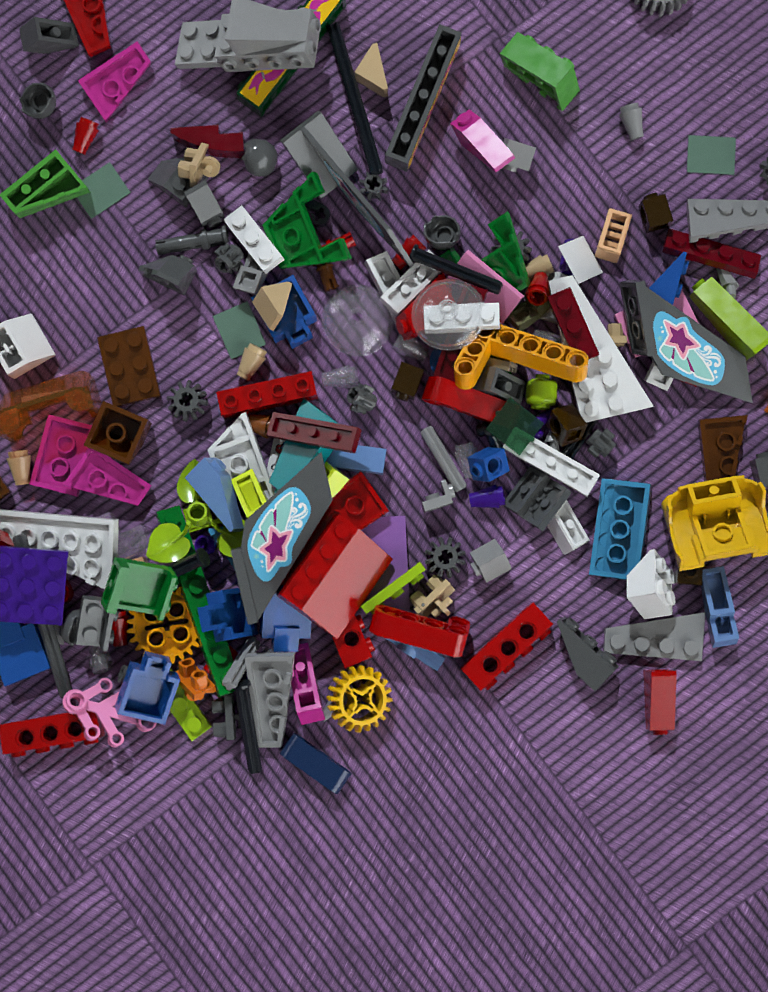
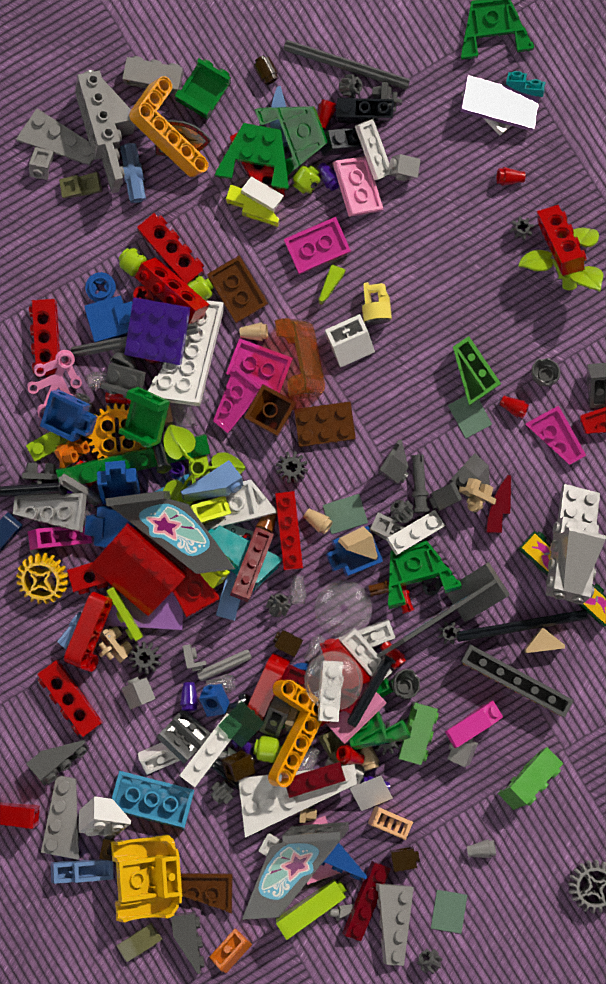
camera: 90 degrees right, 0 degrees up
(260, 157) = (481, 544): dark grey hair -> none
(486, 205) = (420, 729): none -> bright green wedge

